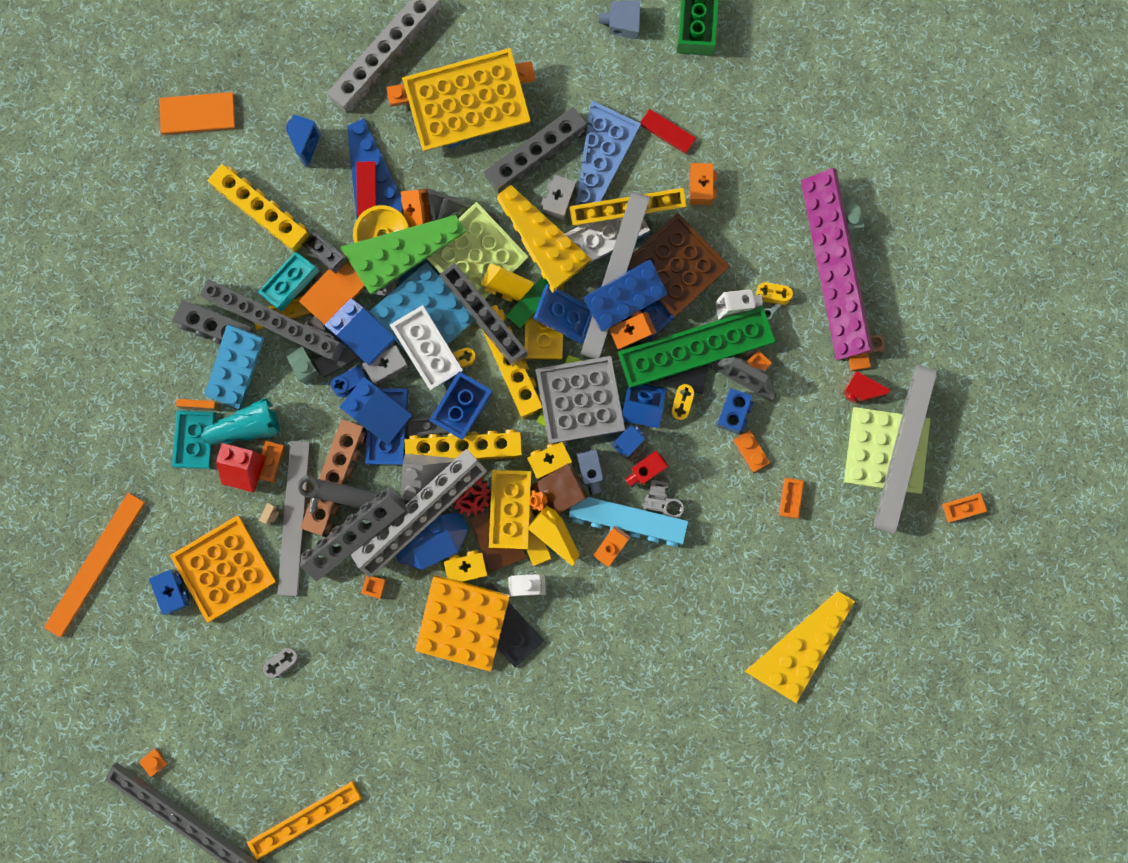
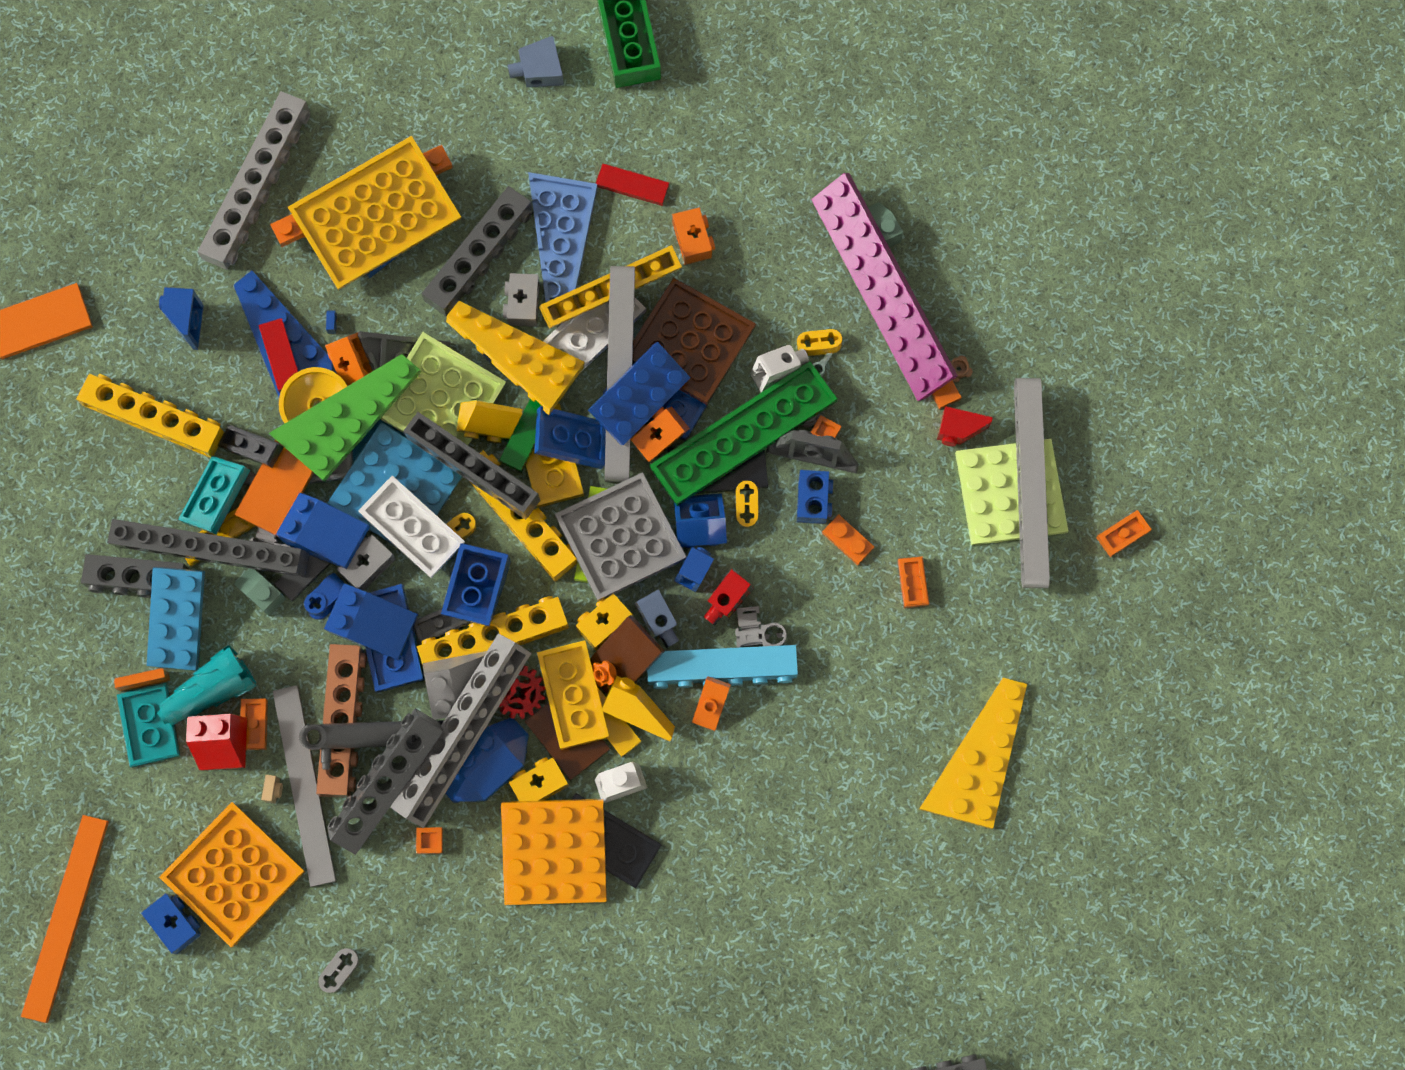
camera: 20 degrees left, 5 degrees down
(411, 174) = (331, 322): none -> blue piece

